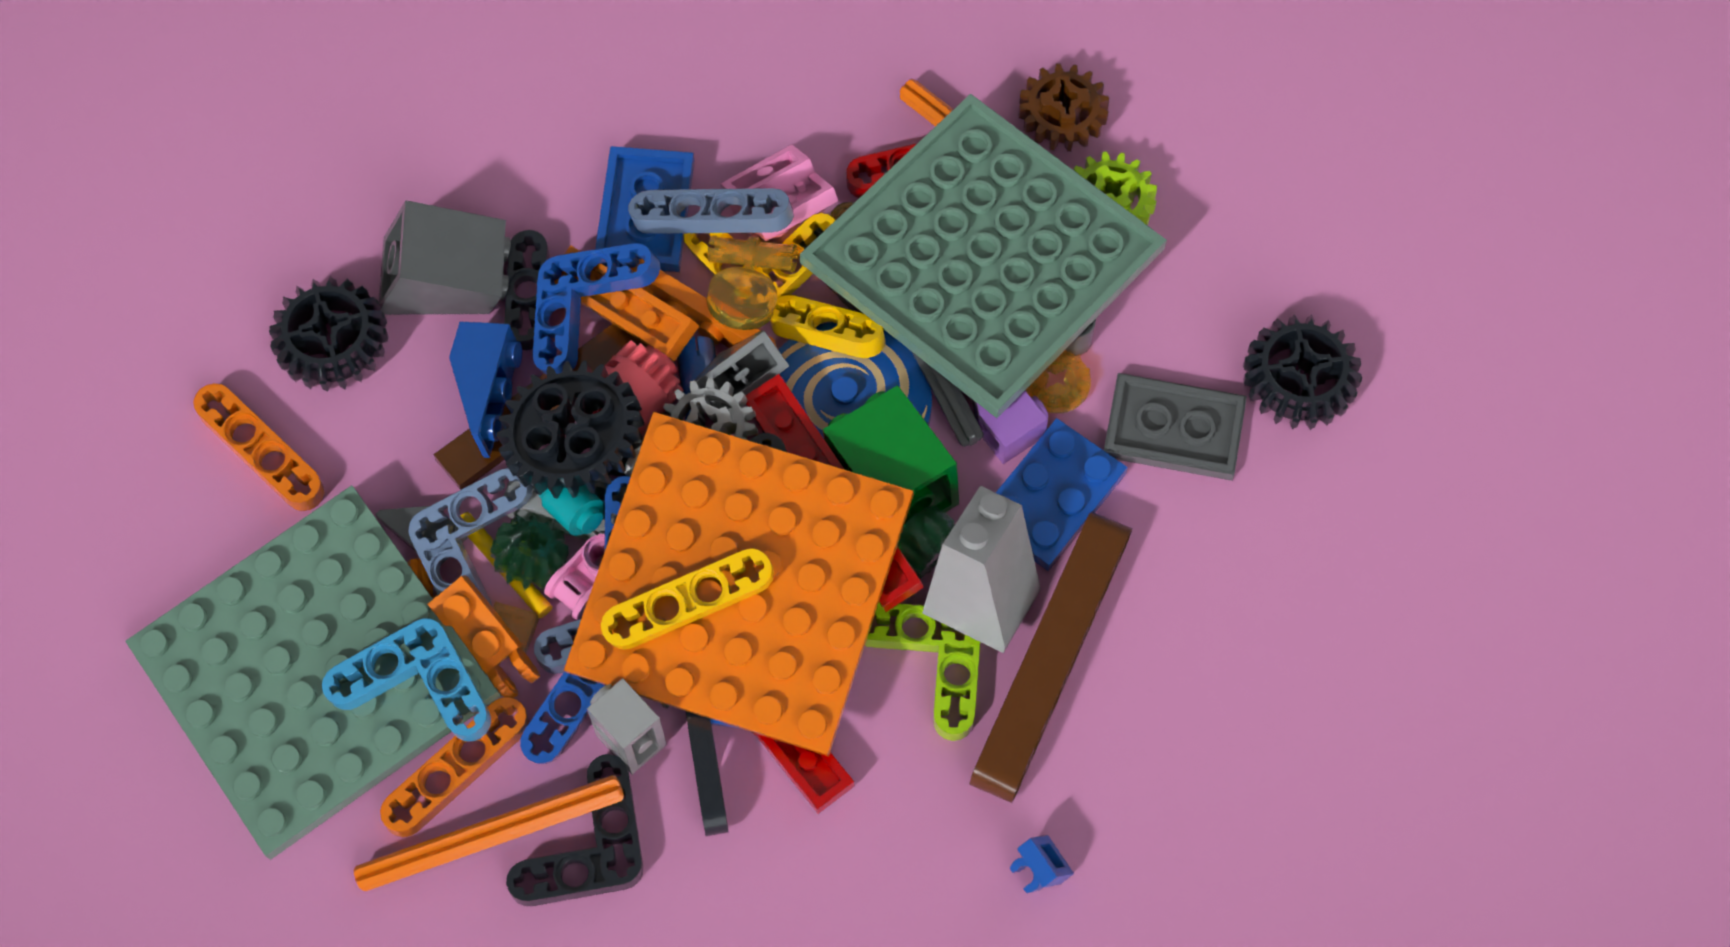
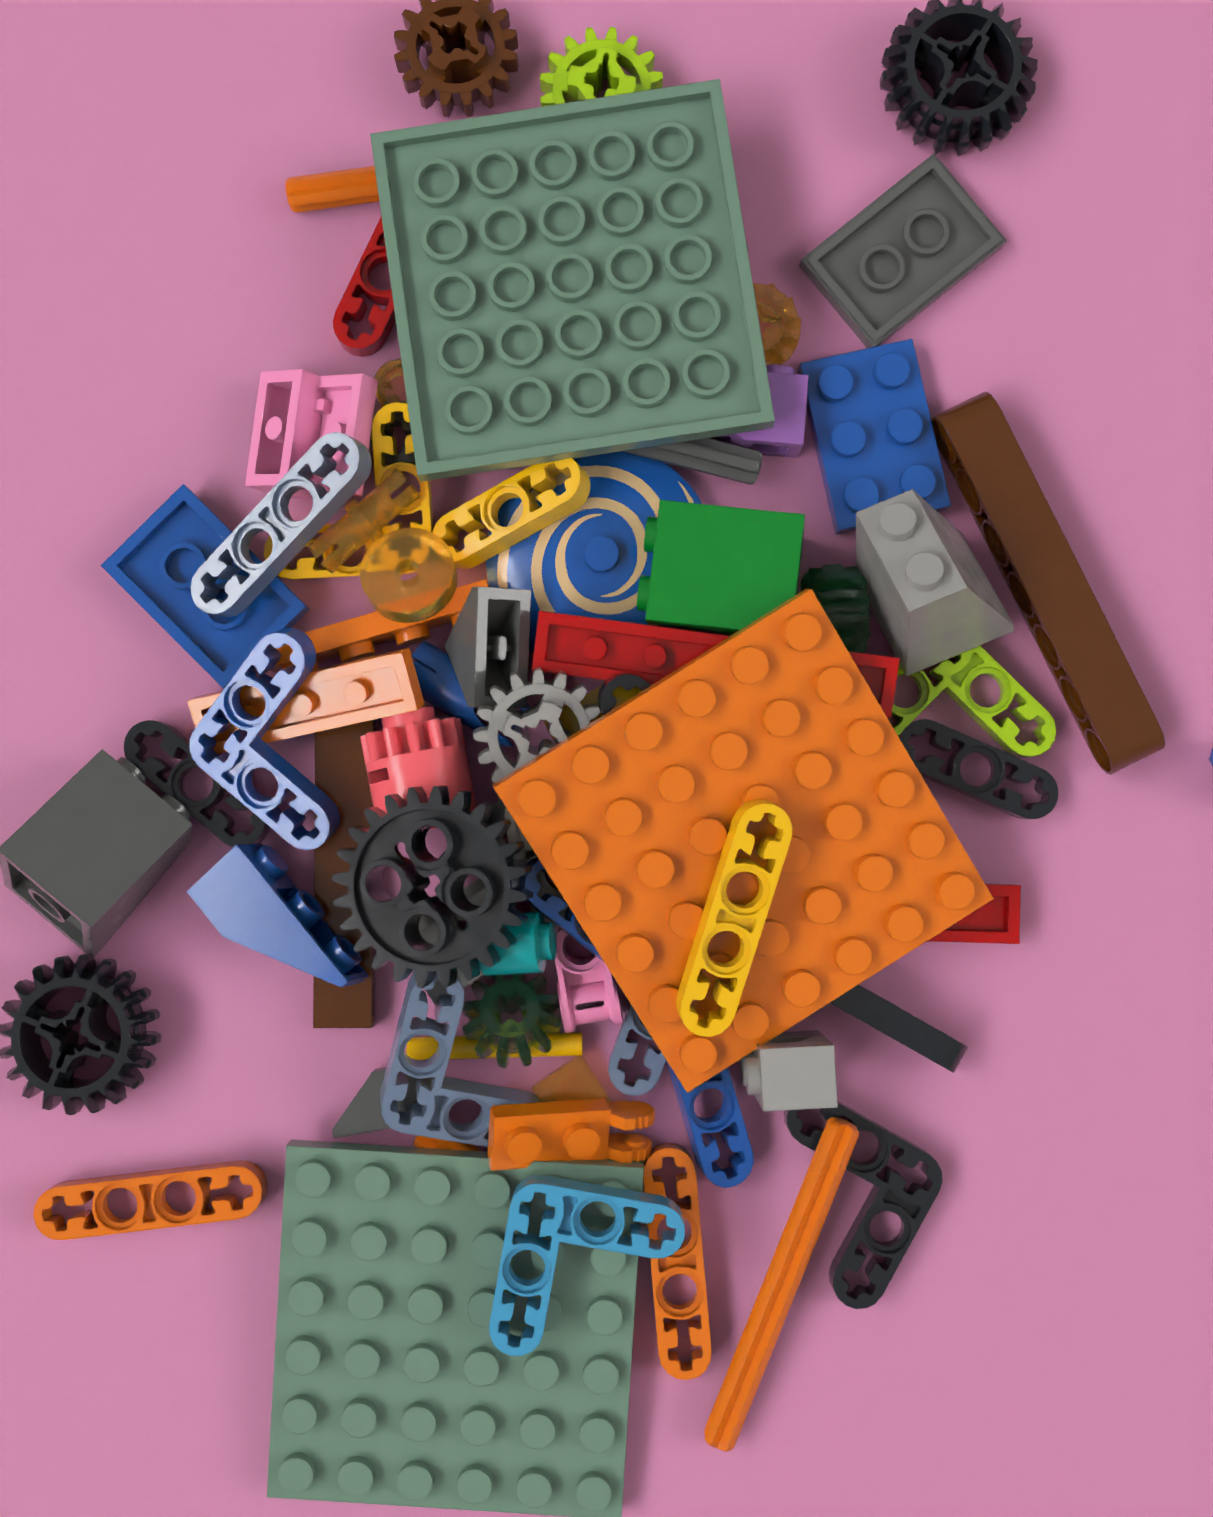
camera: 50 degrees left, 20 degrees up
(925, 733) = (1021, 772): none -> black beam

